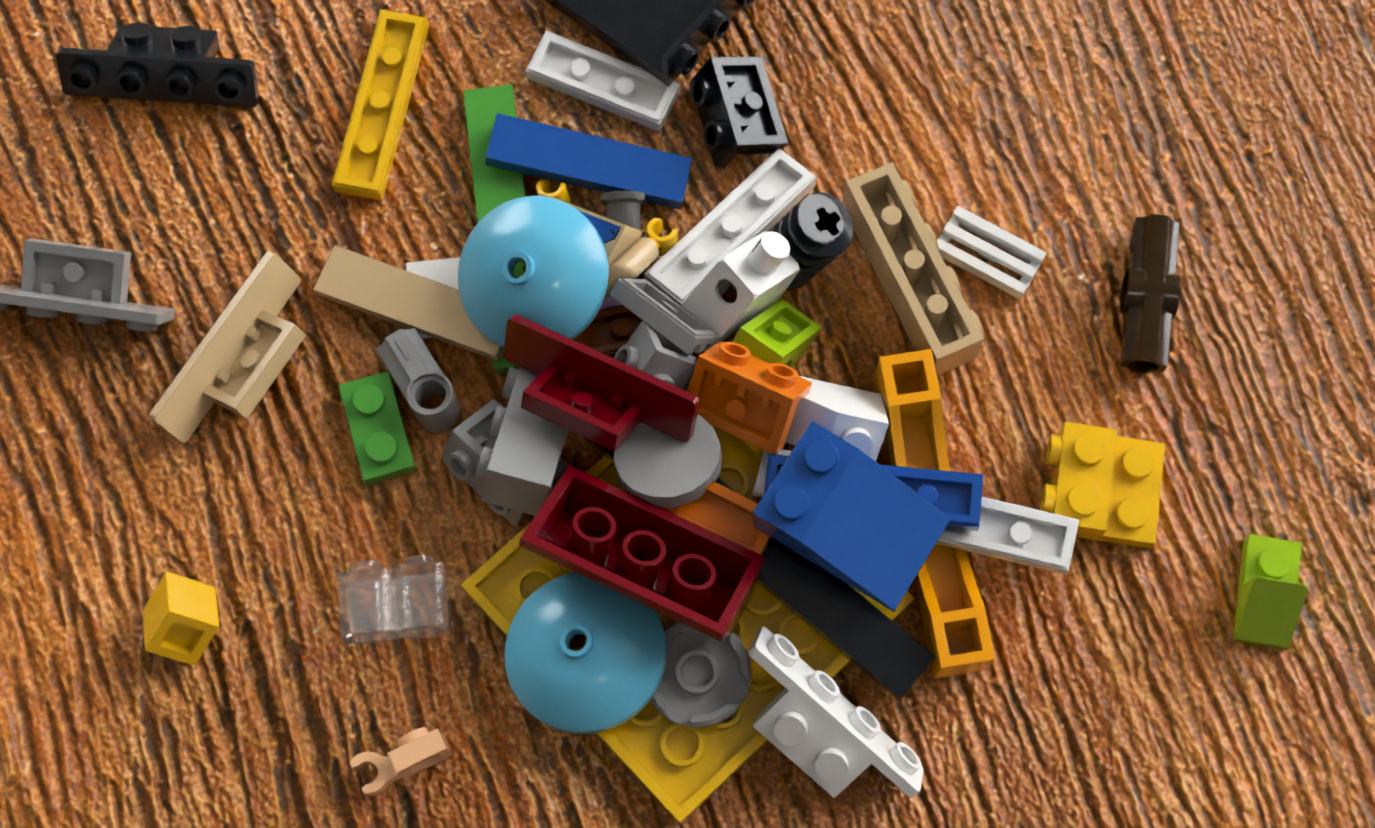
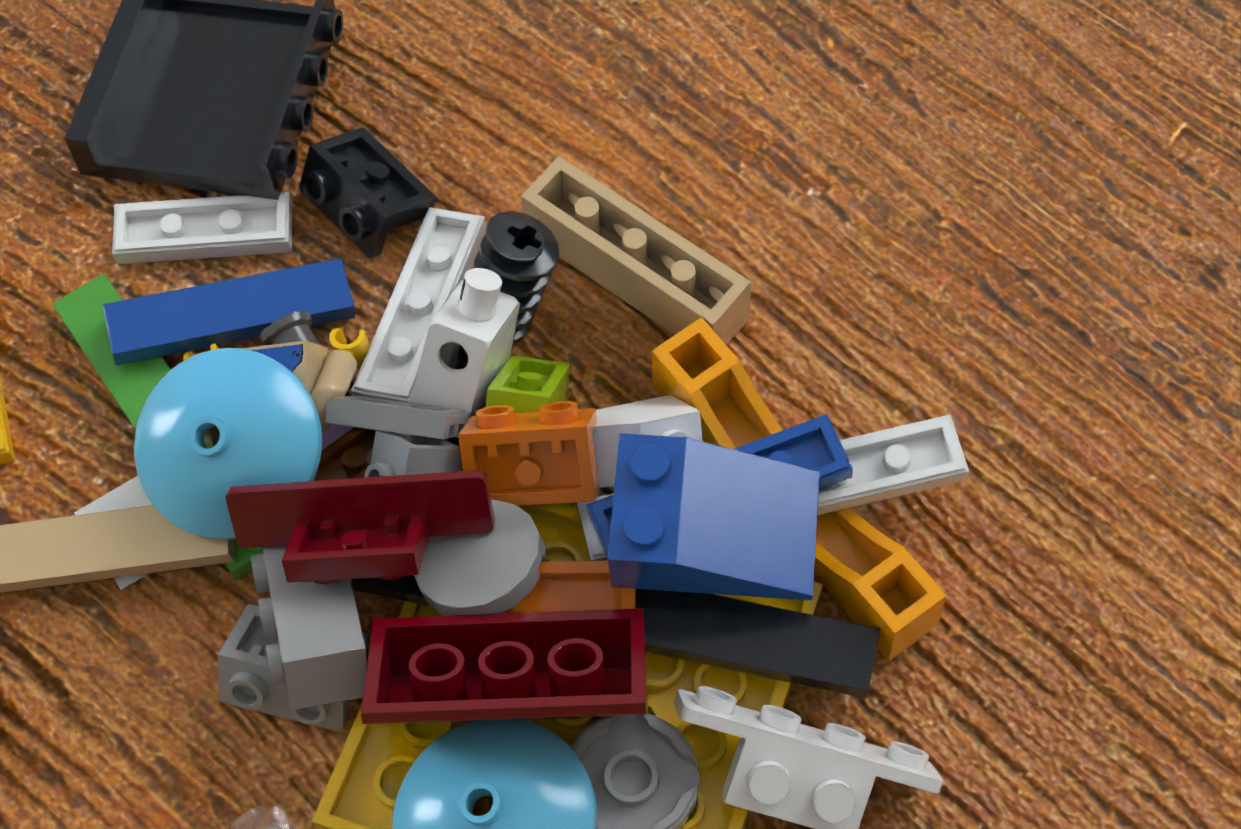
camera: 25 degrees left, 10 degrees down
(377, 428) = (128, 702): bright green plate -> none
(419, 379) = (152, 623): light grey piece -> none
(998, 237) = (705, 201): white tile -> none
(1105, 483) = (953, 370): yellow plate -> none
(1150, 294) = (890, 172): dark brown piece -> none
(1269, 592) = (1178, 402): lime slope -> none

